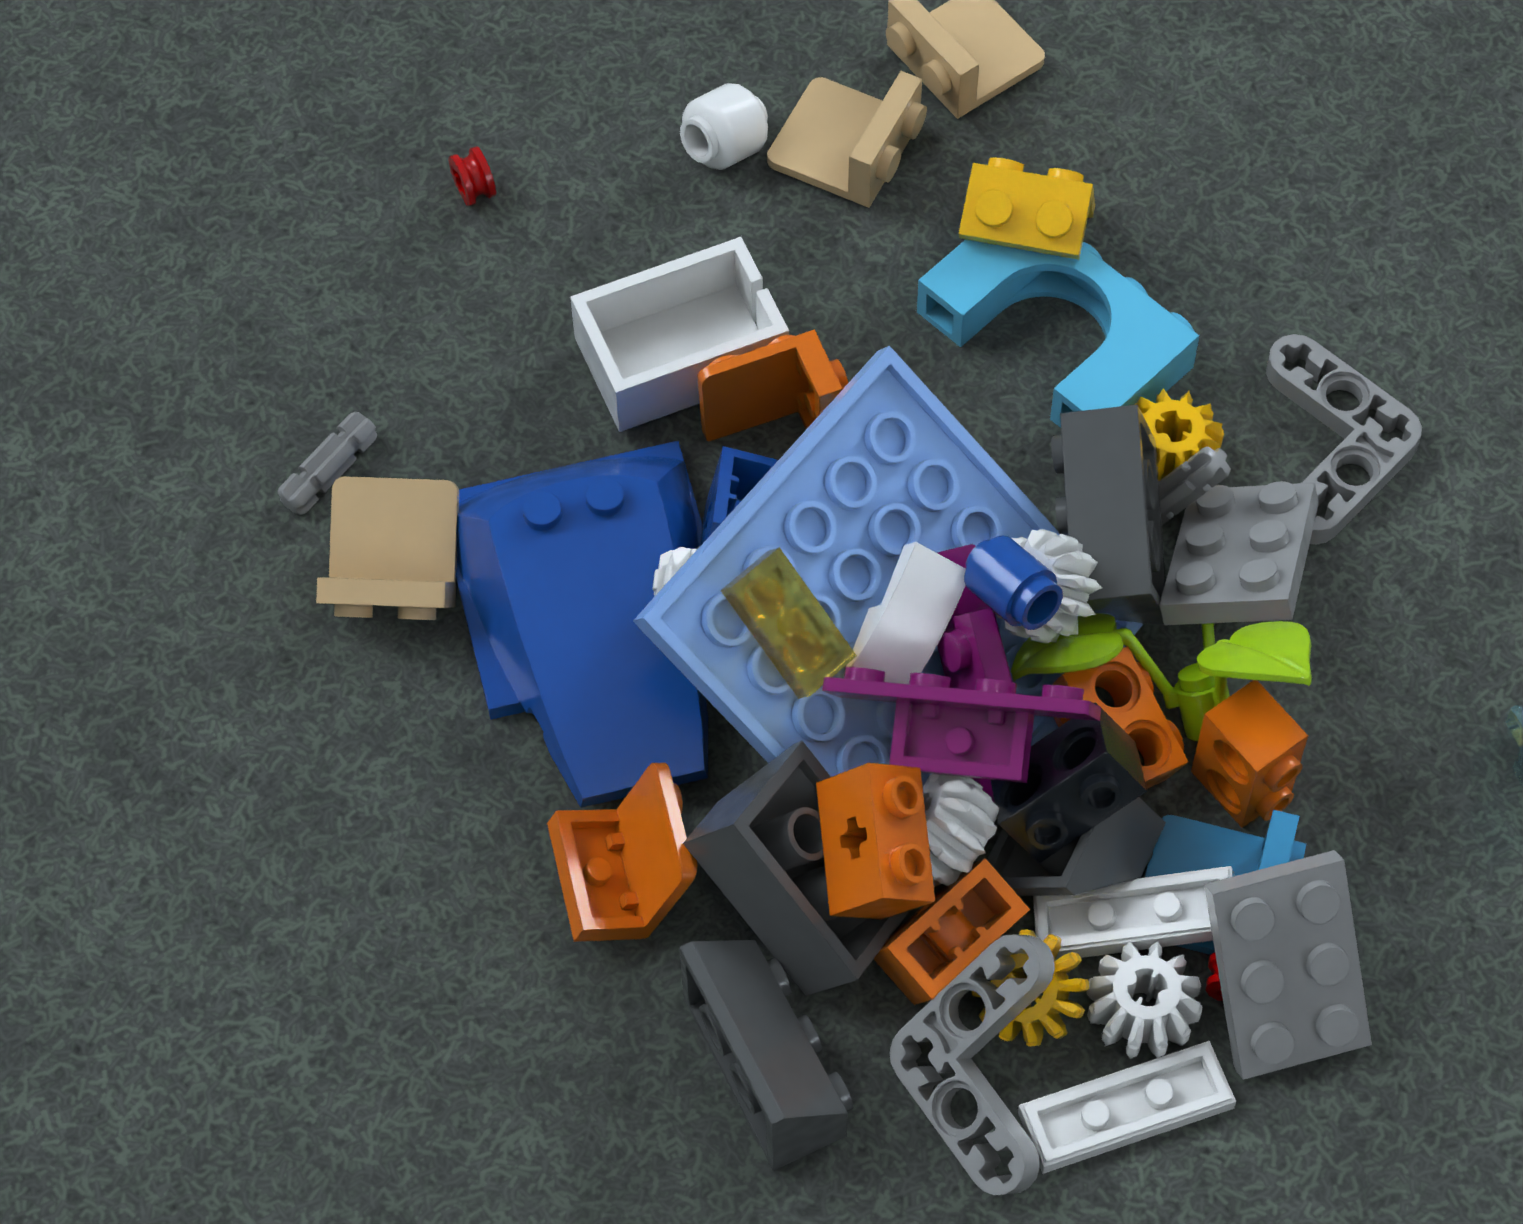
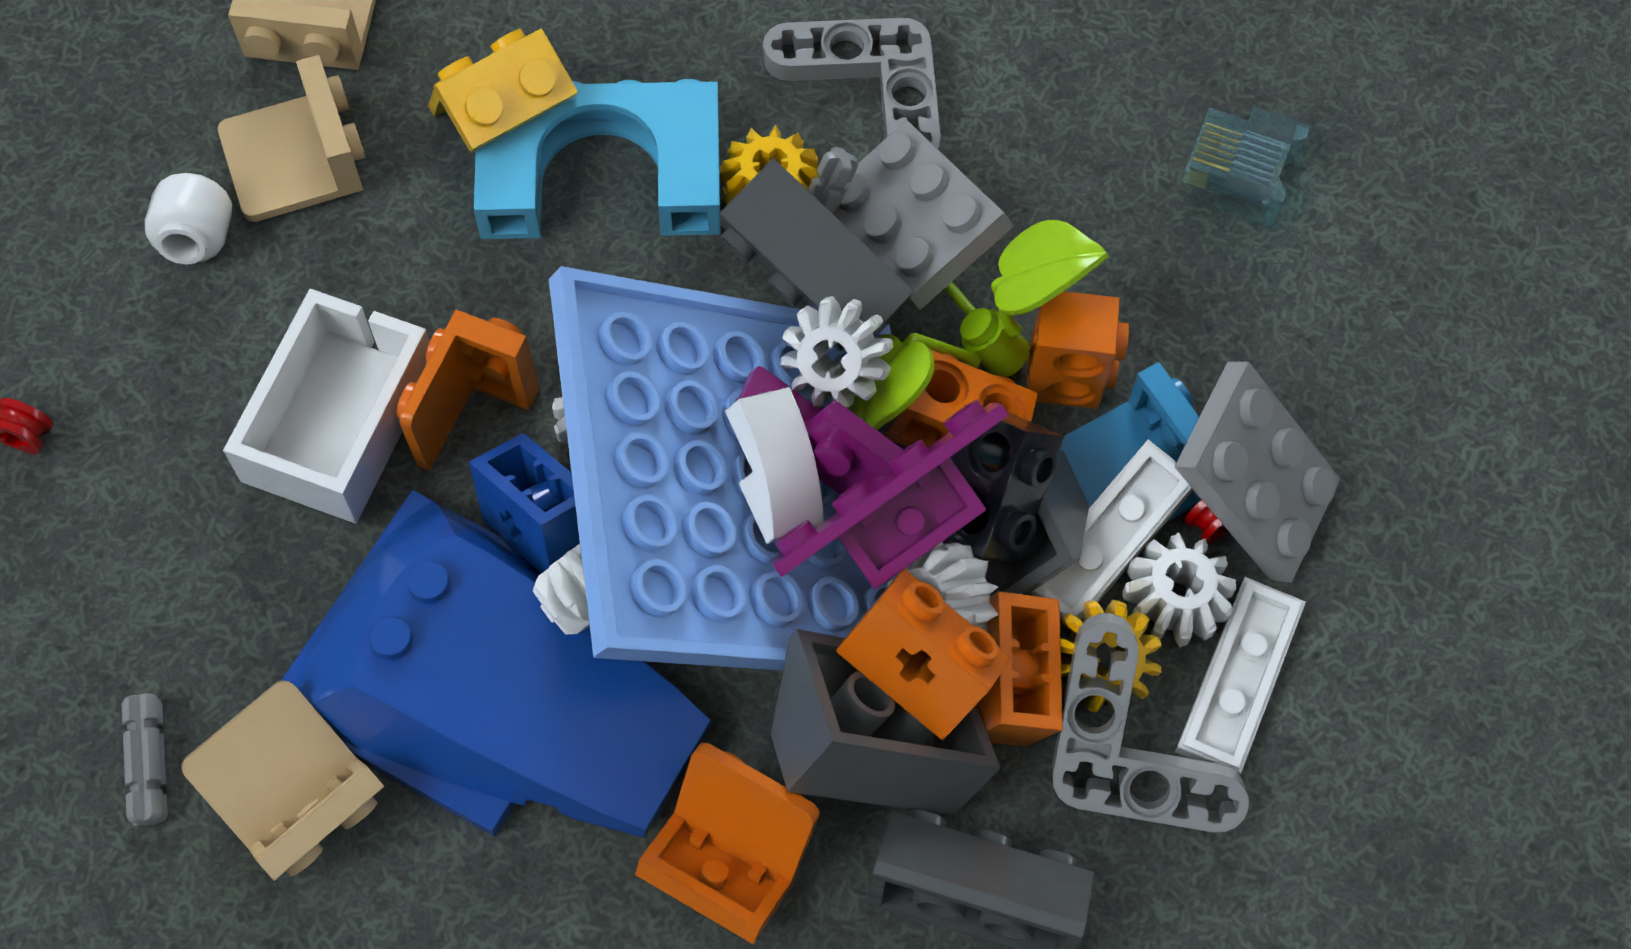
camera: 50 degrees left, 5 degrees up
(788, 623) = (707, 548): clear yellow plate -> none
(1013, 583) = (831, 367): blue brick -> none

